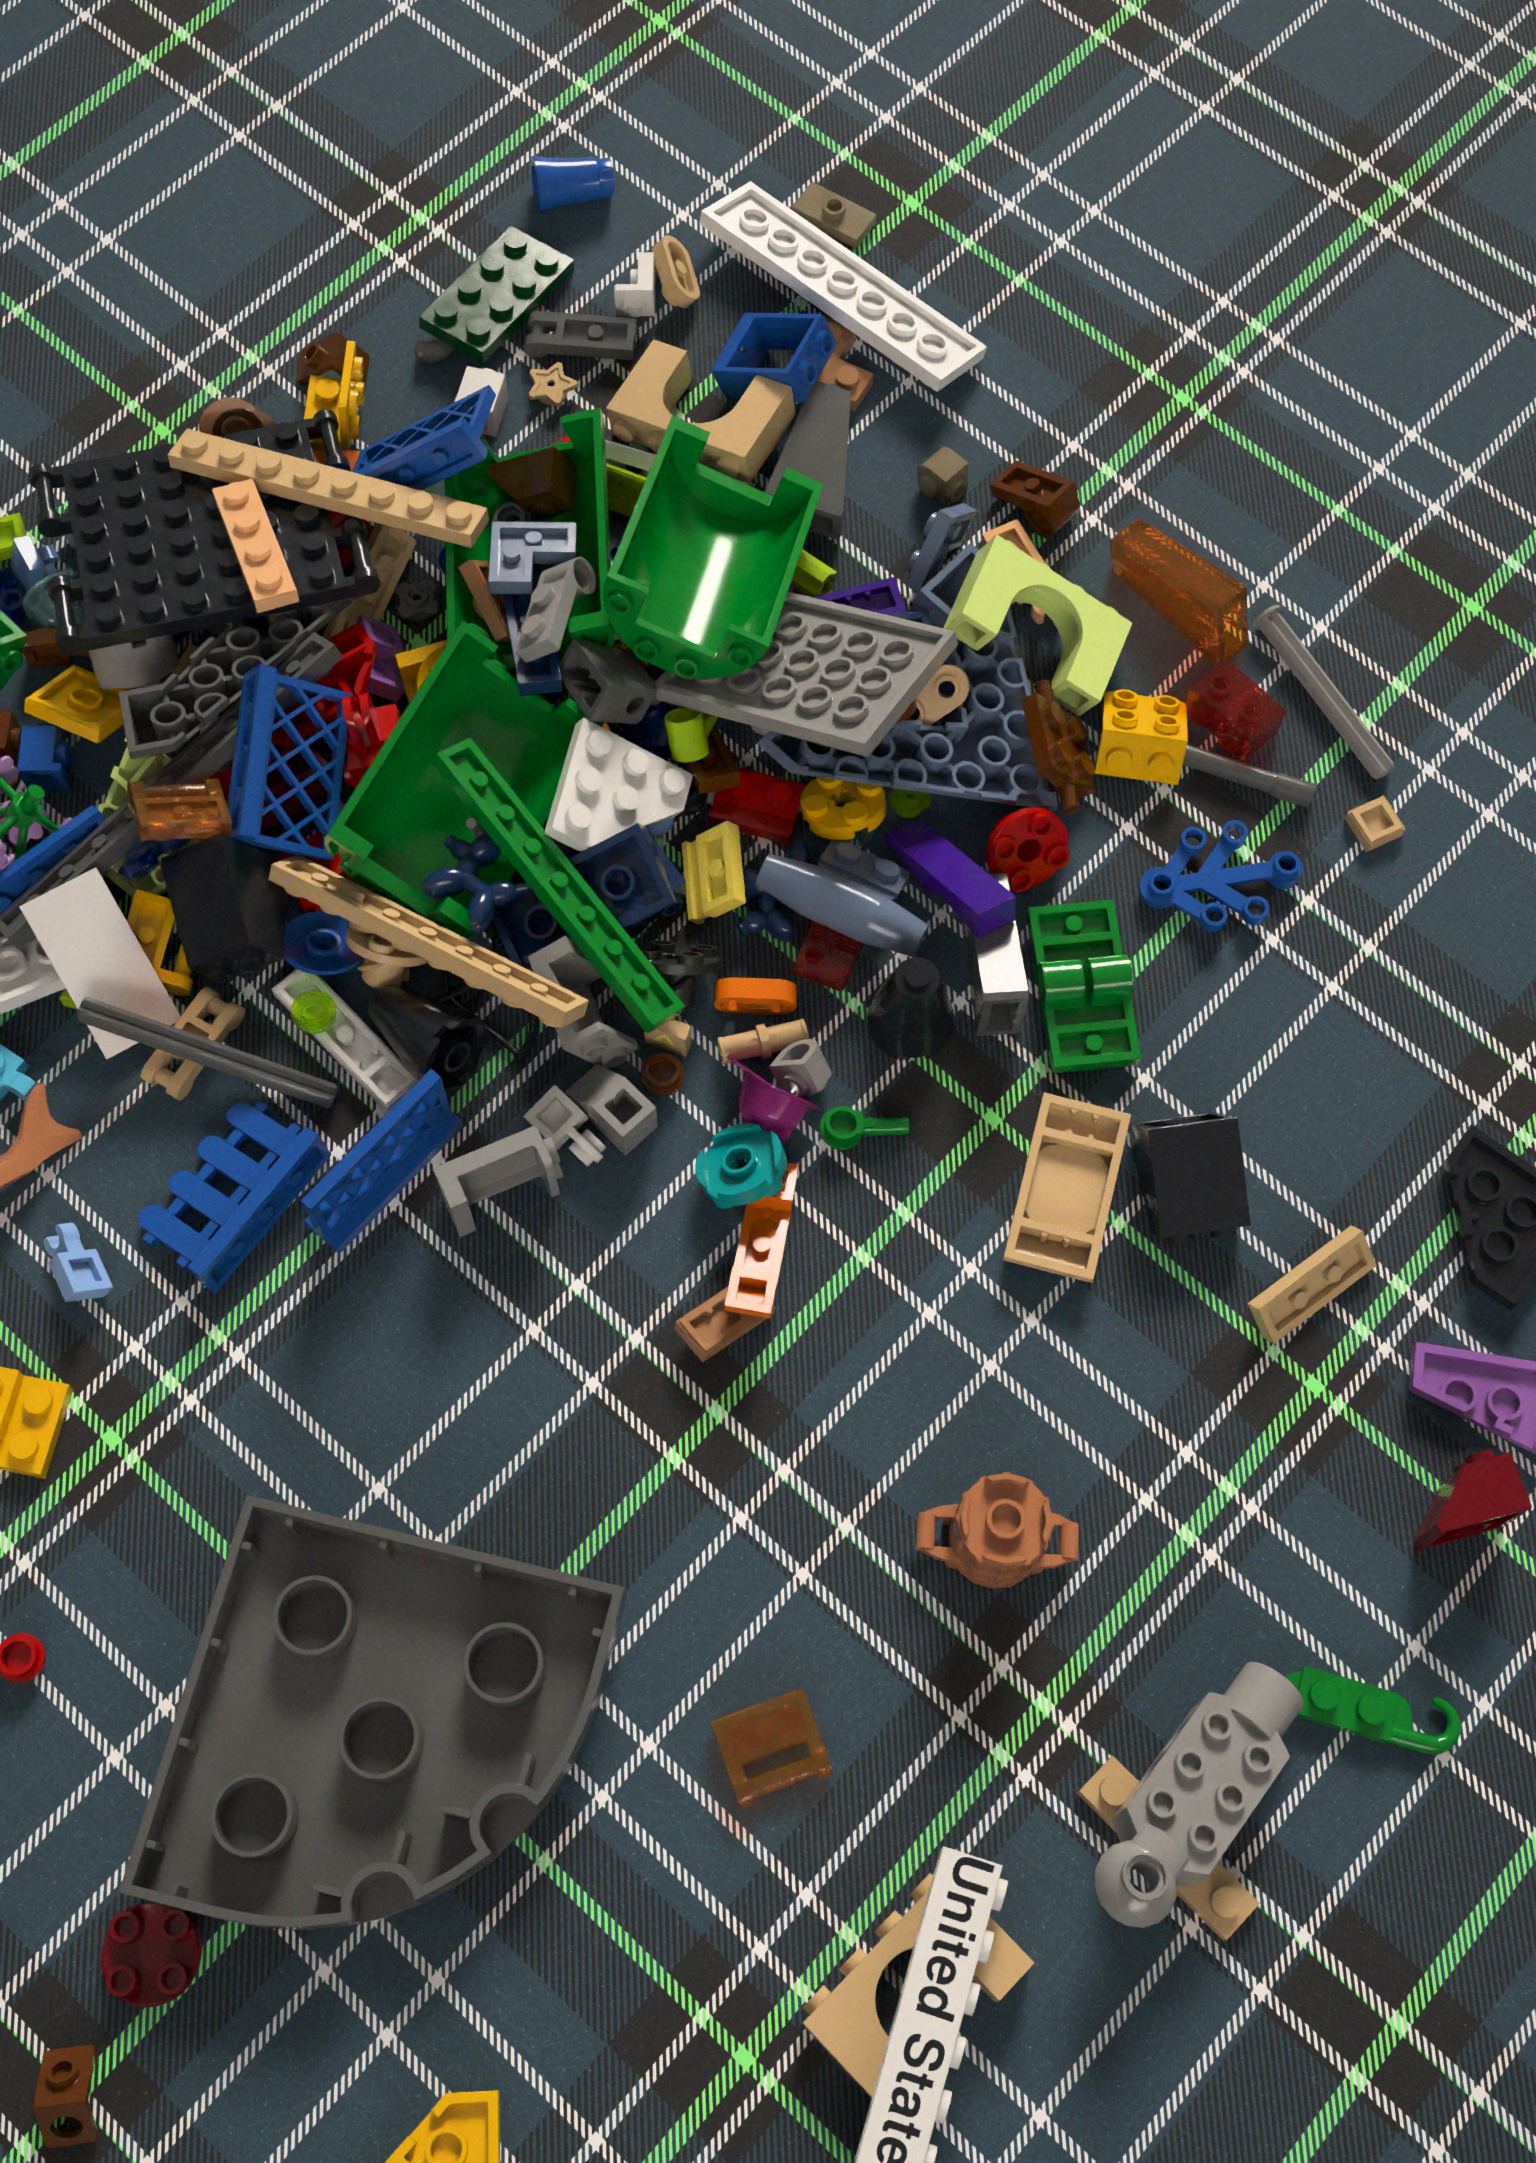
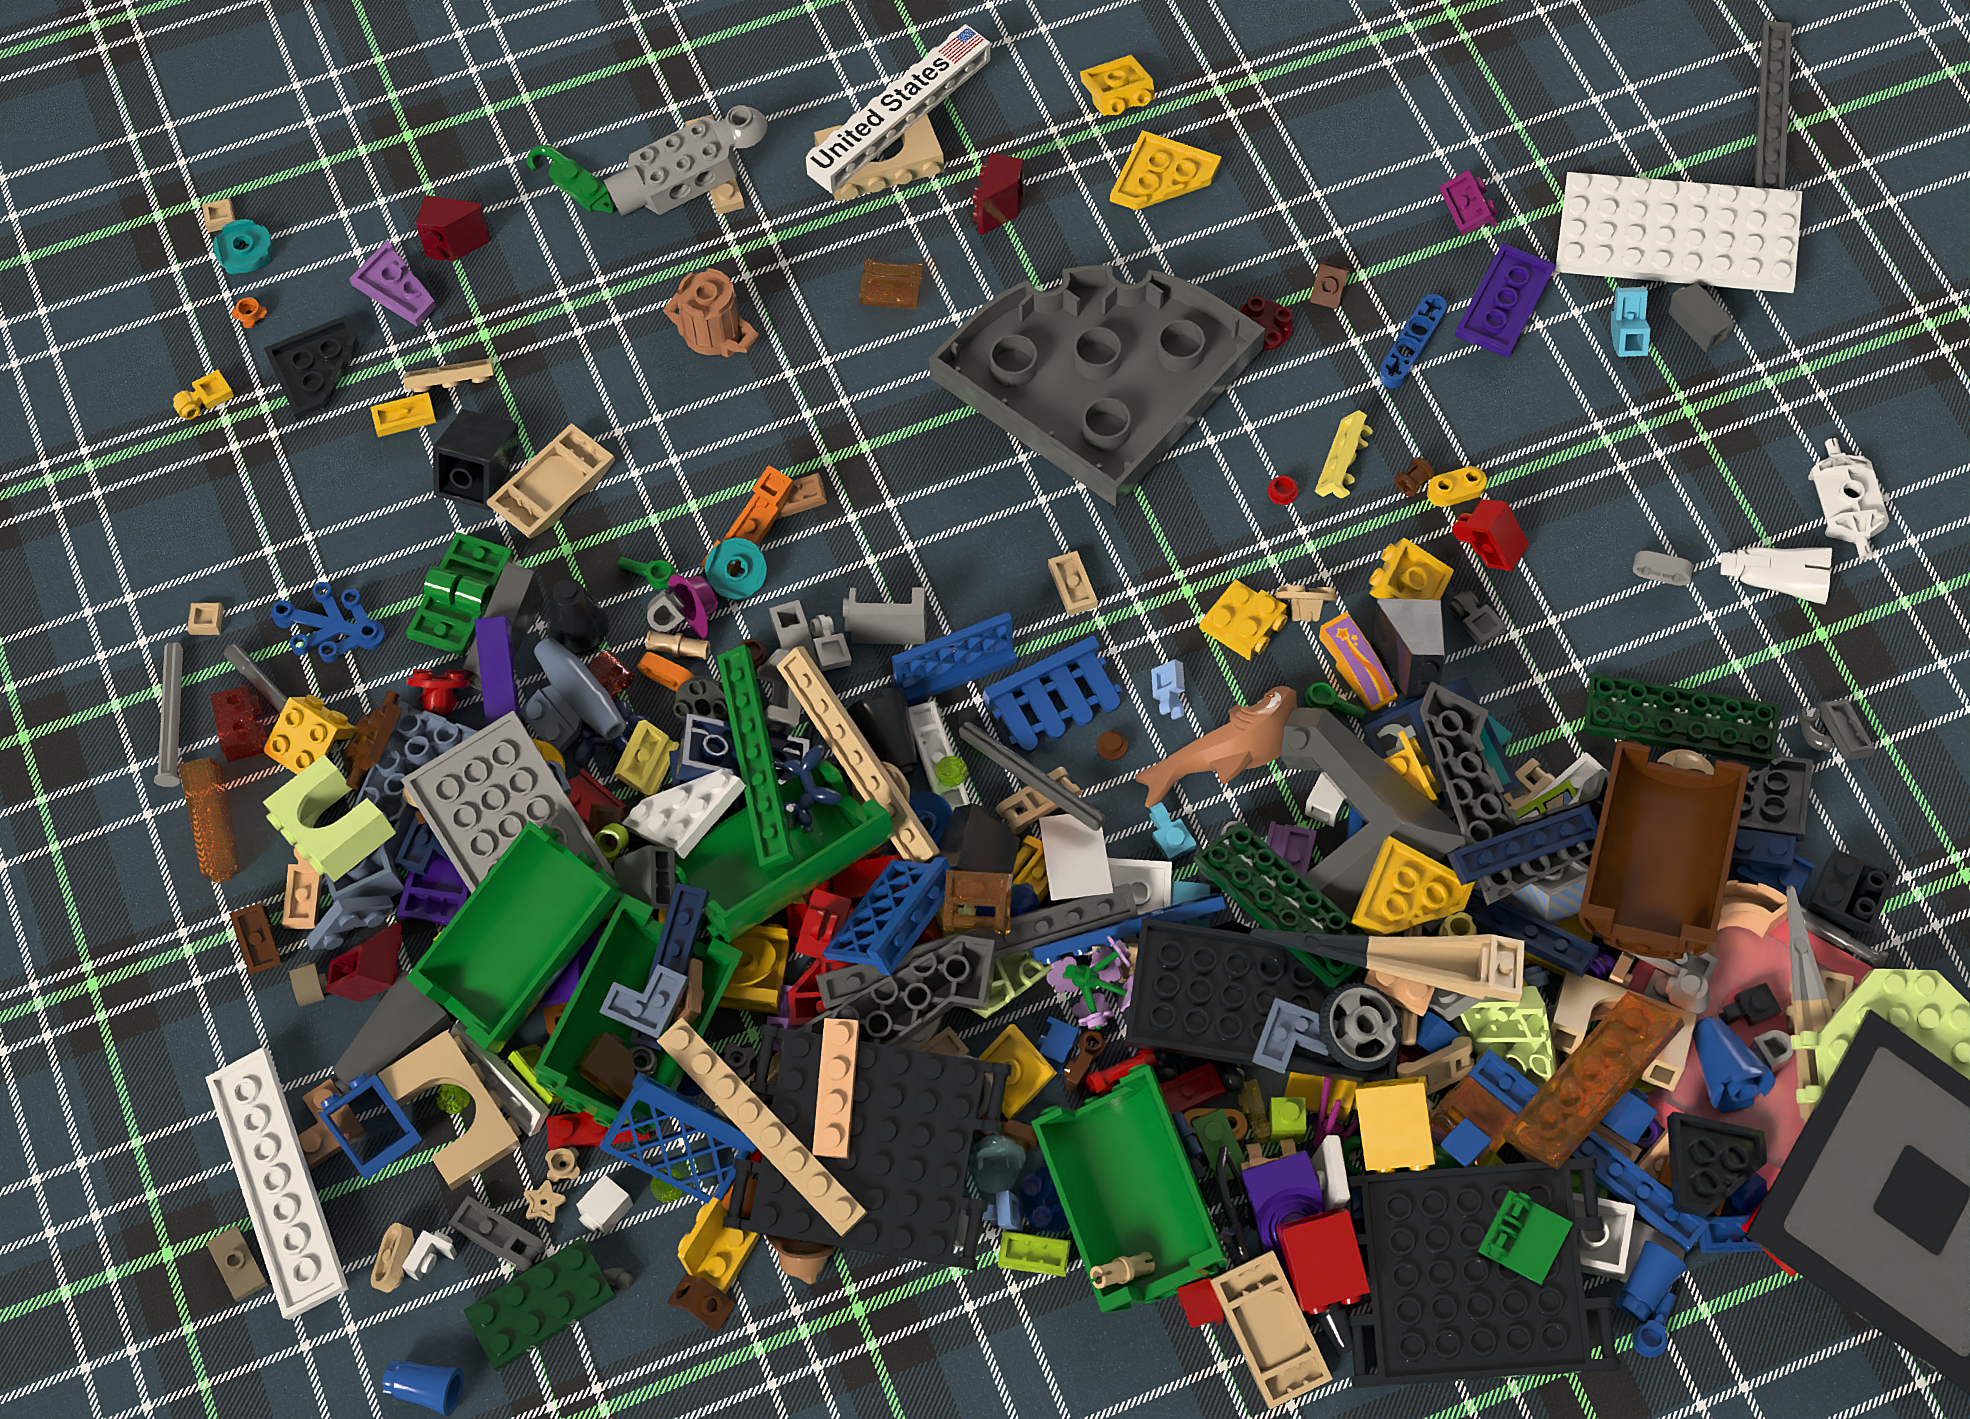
camera: 150 degrees left, 5 degrees down
(125, 1156) = (1112, 745): none -> reddish brown plate
(273, 1363) = (1072, 583): none -> tan plate
(546, 419) = (560, 1155): none -> tan plate
(552, 605) = (652, 940): light grey plate -> none
(671, 1987) = (999, 193): none -> dark red slope
(887, 501) = (366, 966): none -> dark red slope
(1331, 1197) = (403, 414): none -> yellow plate

